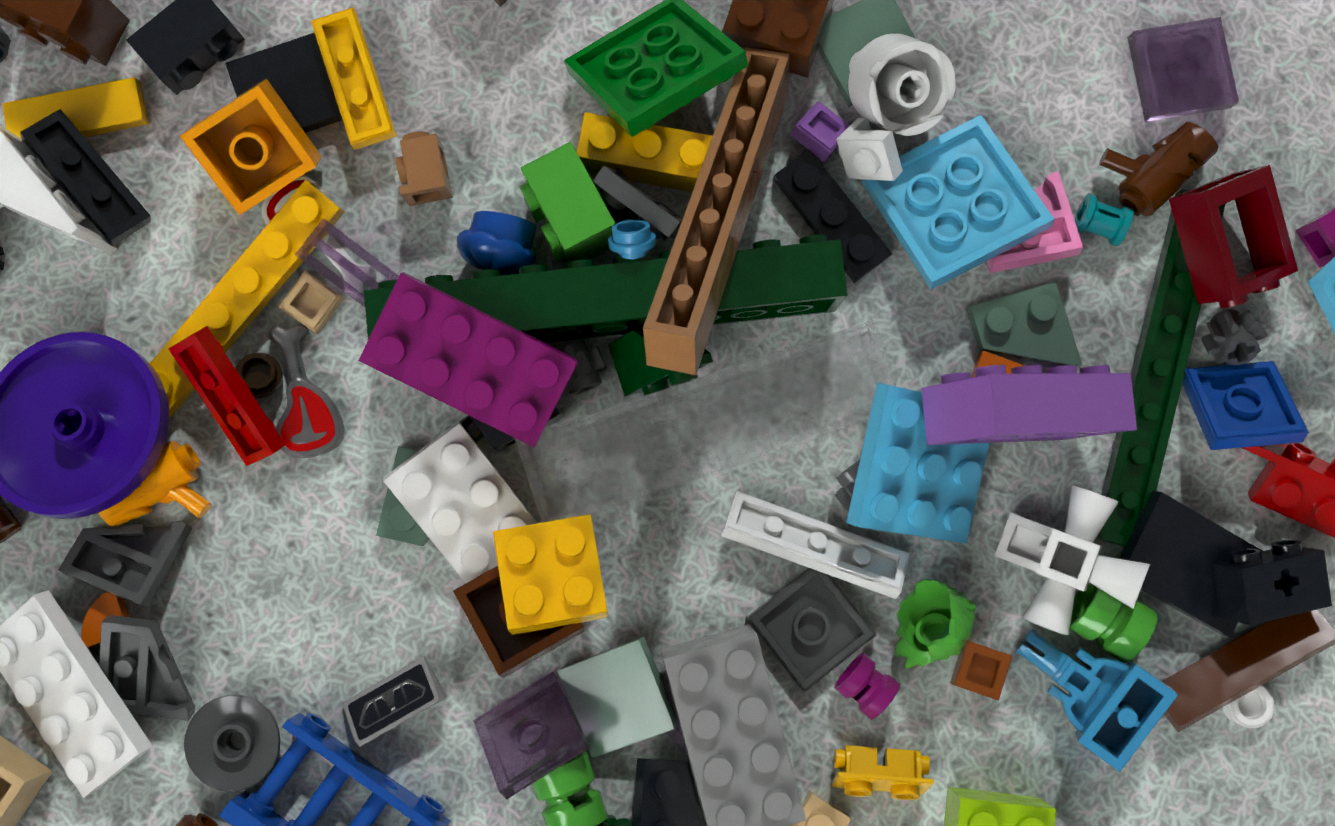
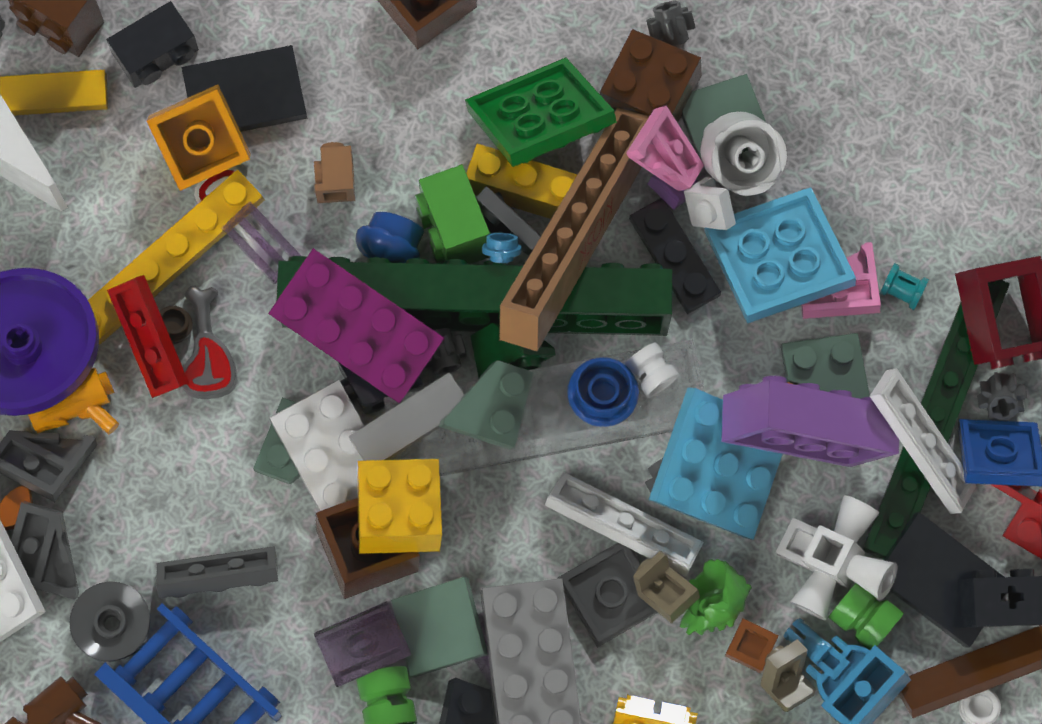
camera: 10 degrees right, 10 degrees down
(85, 177) = (55, 145): black plate -> none
(311, 302) = (224, 271): tan tile -> none
(349, 666) = (217, 572): none -> dark grey plate
(354, 78) = (287, 93): yellow tile -> none
(392, 701) = (247, 609): slope -> none
(550, 466) = (407, 421): none -> light grey tile
(647, 436) = (492, 406): none -> sand green wing
(777, 402) = (603, 392): none -> blue piece
(811, 92) = (666, 151): none -> bright pink wing
(831, 367) = (652, 370): none -> white wheel
(867, 686) = (656, 653): magenta wheel -> none
(875, 620) = (664, 587): none -> dark tan bracket
(1027, 707) = (784, 676): none -> dark tan bracket
(1157, 406) = (922, 440): none -> white tile
(1161, 174) = (959, 252): reddish brown piece -> none
(1182, 69) = (988, 171): clear purple plate -> none

